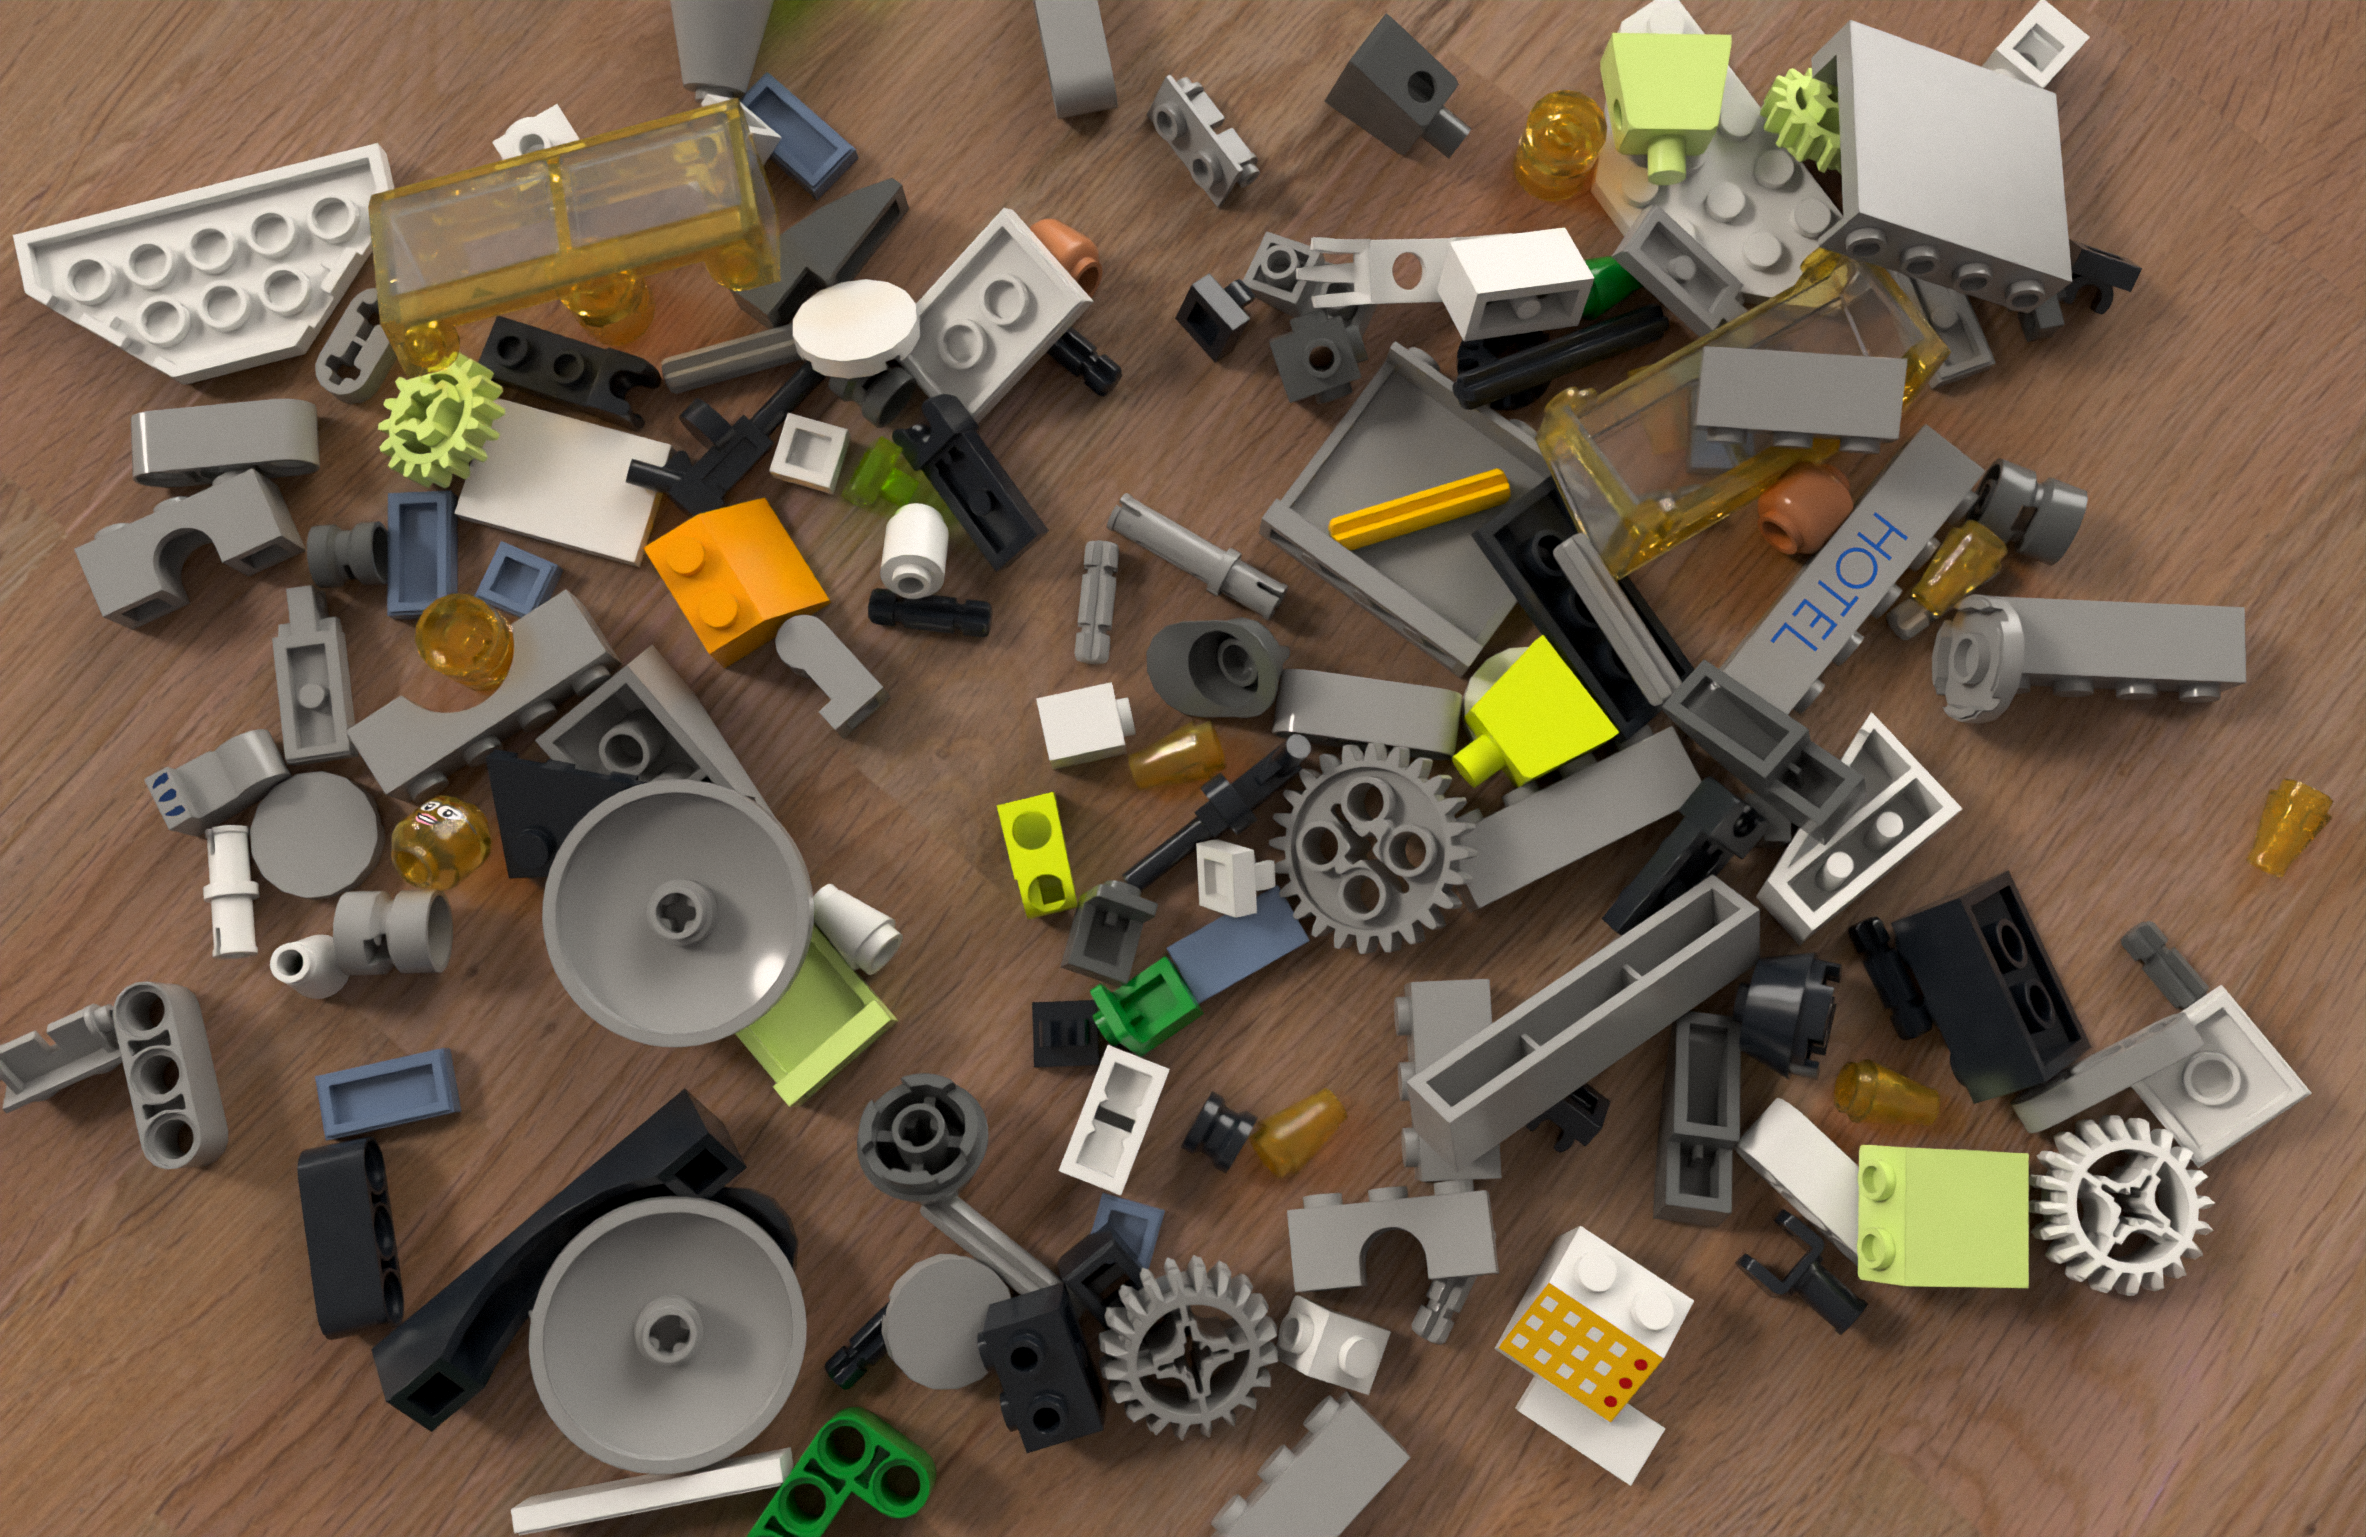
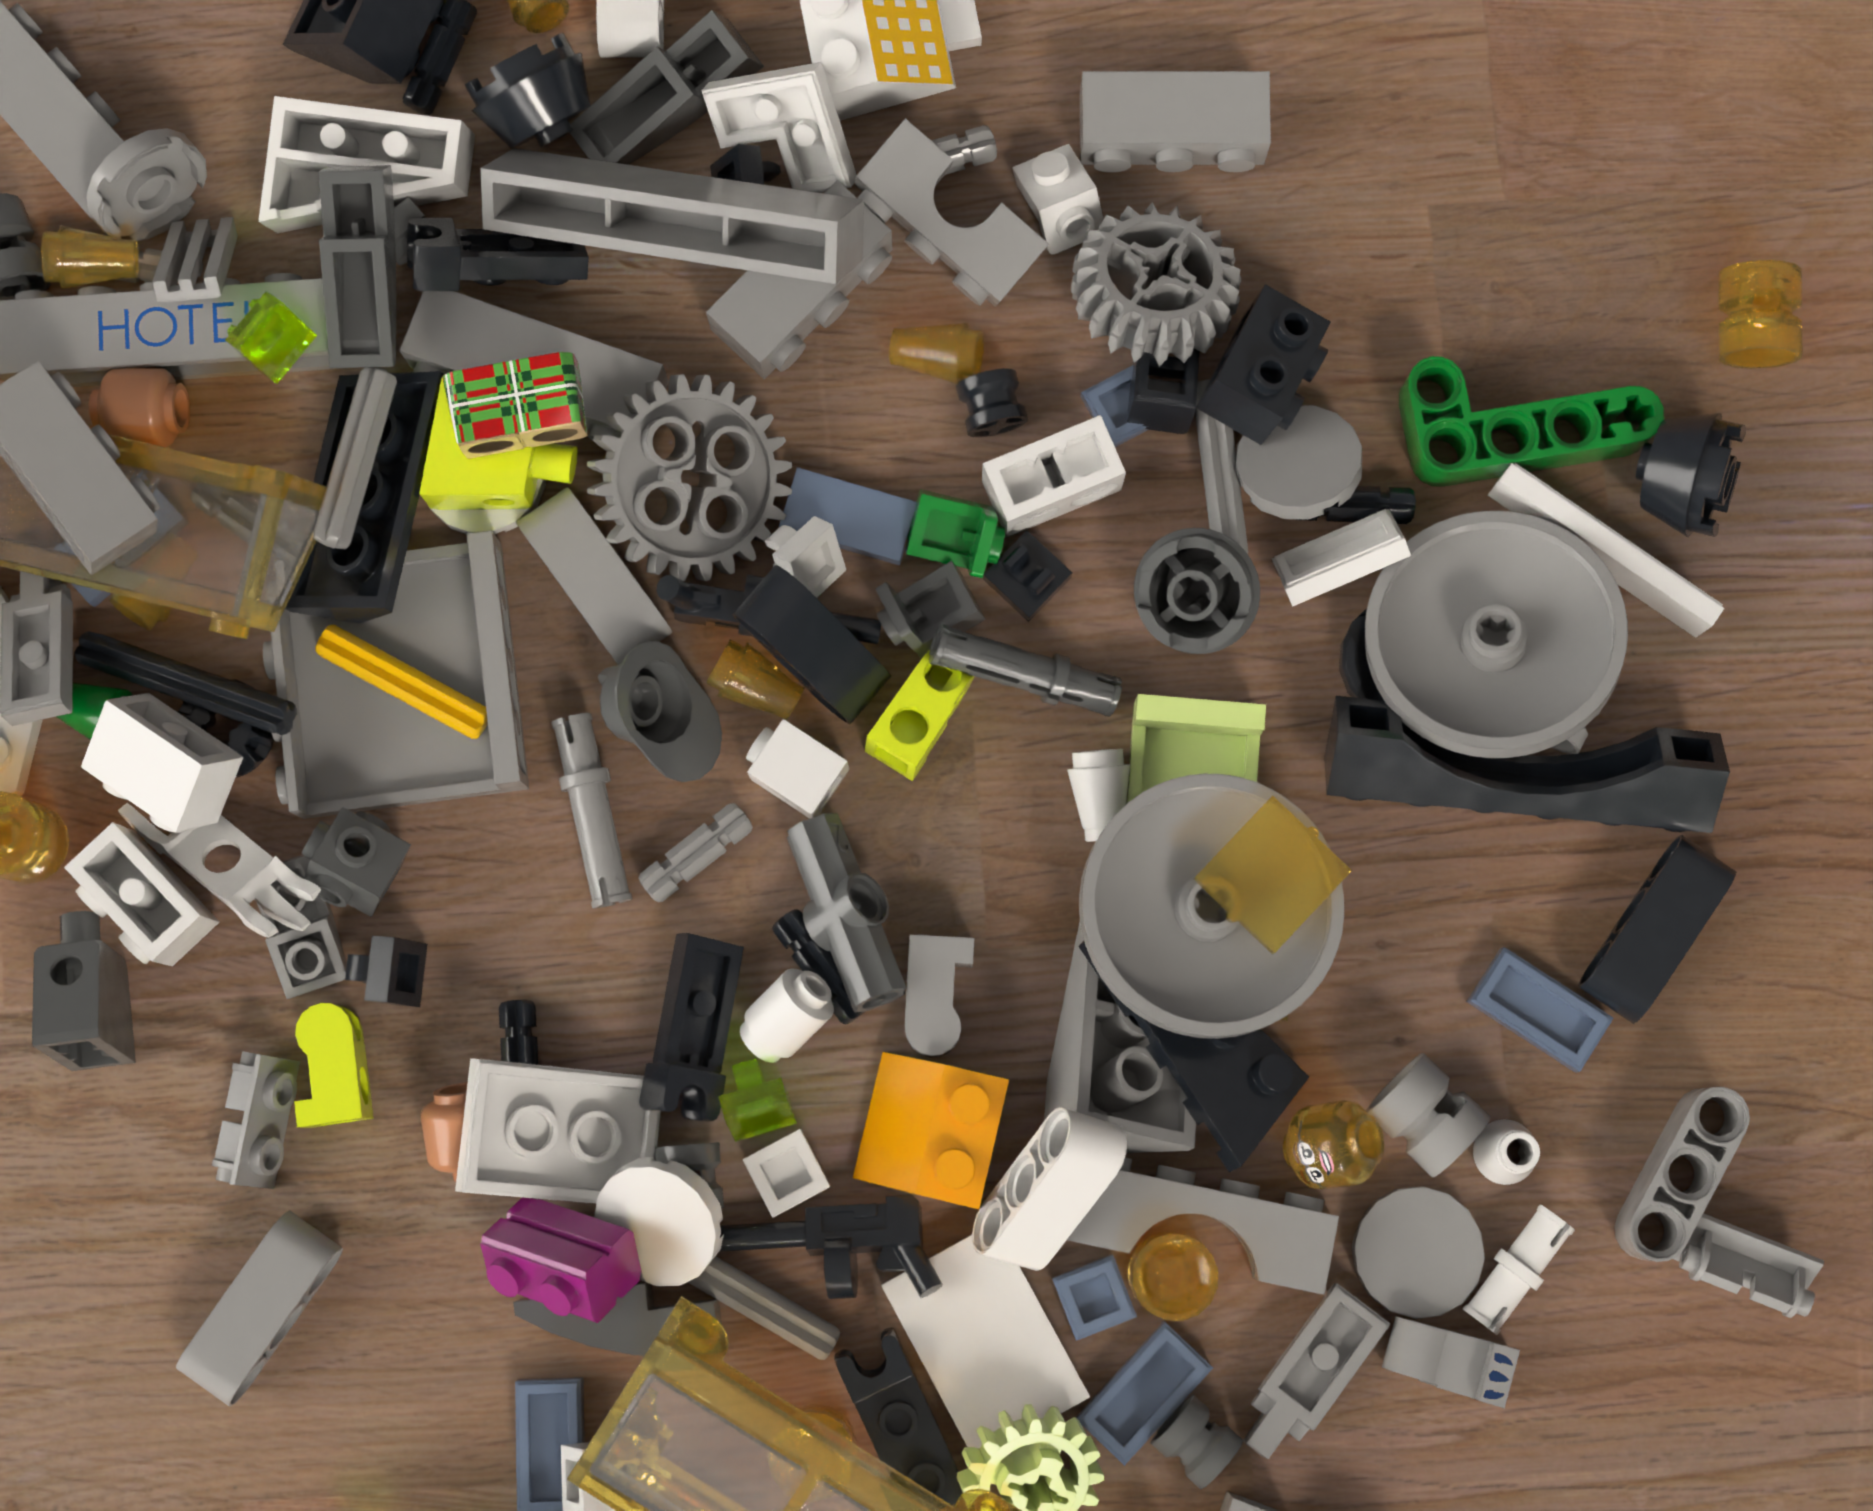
camera: 130 degrees left, 0 degrees up
(604, 607) = (1049, 1189): none -> white beam
(652, 976) = (1272, 875): none -> clear yellow piece
(845, 1278) = (1341, 556): none -> white tile
(895, 238) = (561, 1259): none -> magenta brick
(945, 660) = (846, 912): none -> dark grey piece
(972, 970) = (1008, 665): none -> dark grey pin
(1158, 813) = (812, 644): none -> black beam
(1185, 222) = (336, 1067): none -> neon yellow leg
(1433, 193) = (141, 895): none -> white brick
(1540, 758) = (516, 404): none -> piece
(1587, 1198) = (793, 109): none -> white tile
(1767, 634) = (270, 337): none -> clear neon green tile
(1890, 634) = (183, 262): none -> light grey tile

